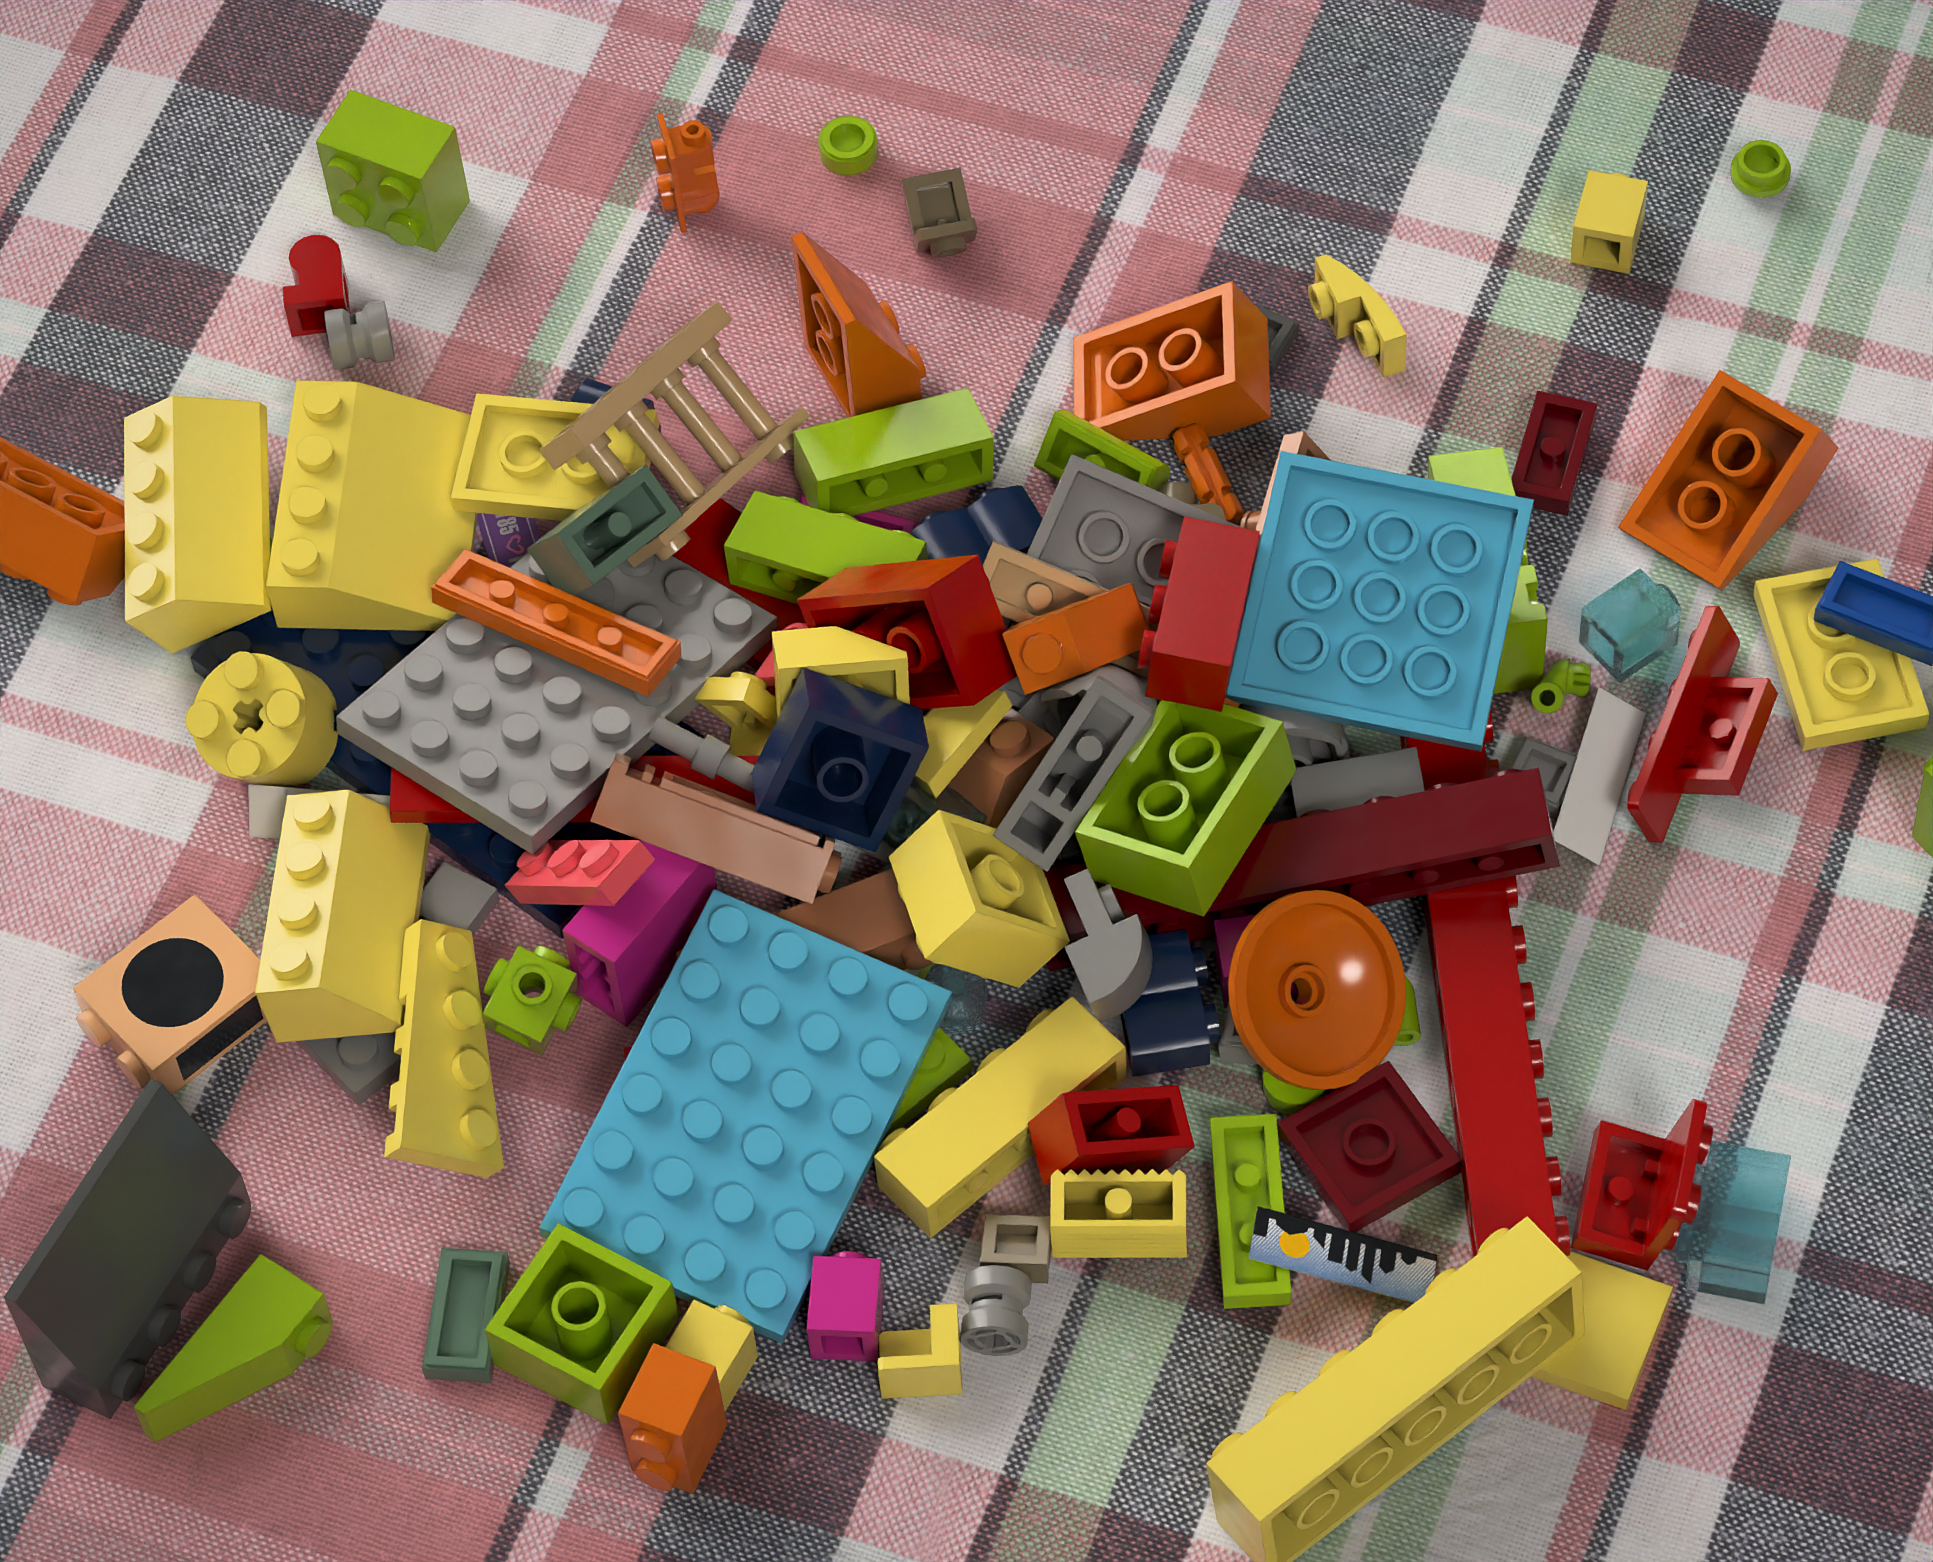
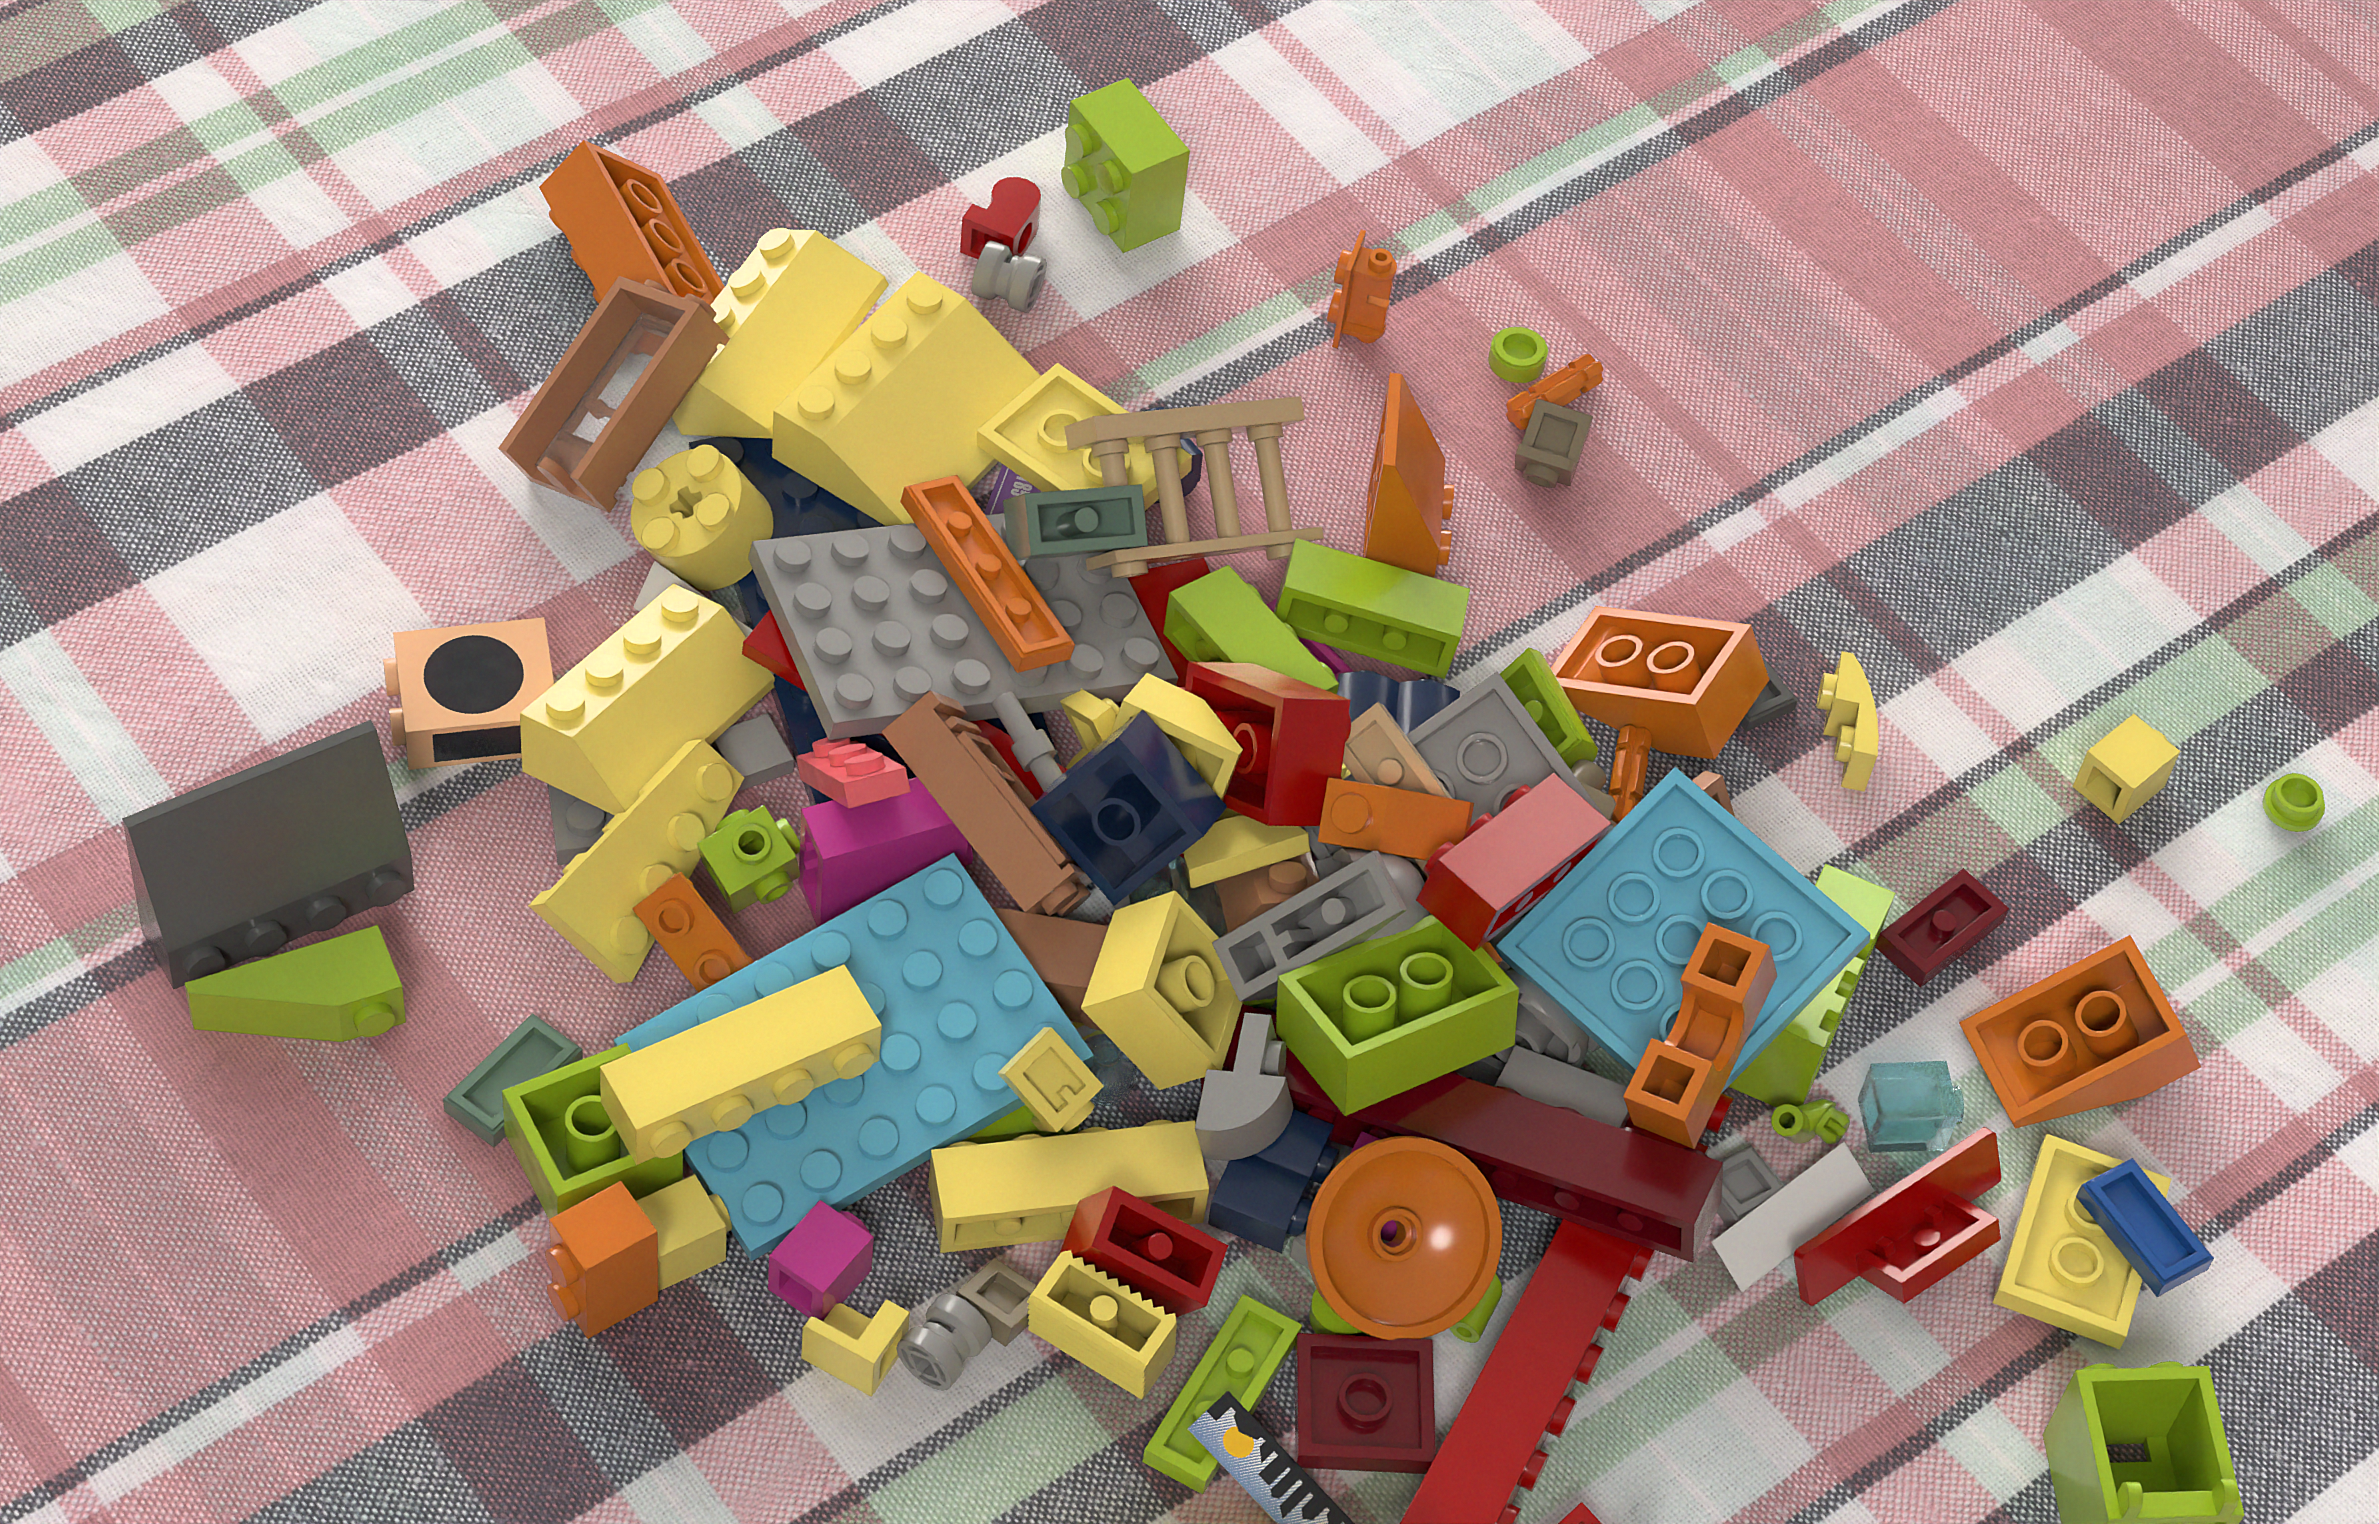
camera: 20 degrees right, 5 degrees down
(105, 651) = (614, 391): none -> nougat door
(536, 1096) = (691, 933): none -> orange hinge
(677, 1183) = (740, 1065): none -> light yellow brick
(904, 160) = (1557, 388): none -> orange axle
(938, 1036) = (1052, 1082): none -> light yellow bracket
(1458, 671) = (1719, 1005): none -> orange arch

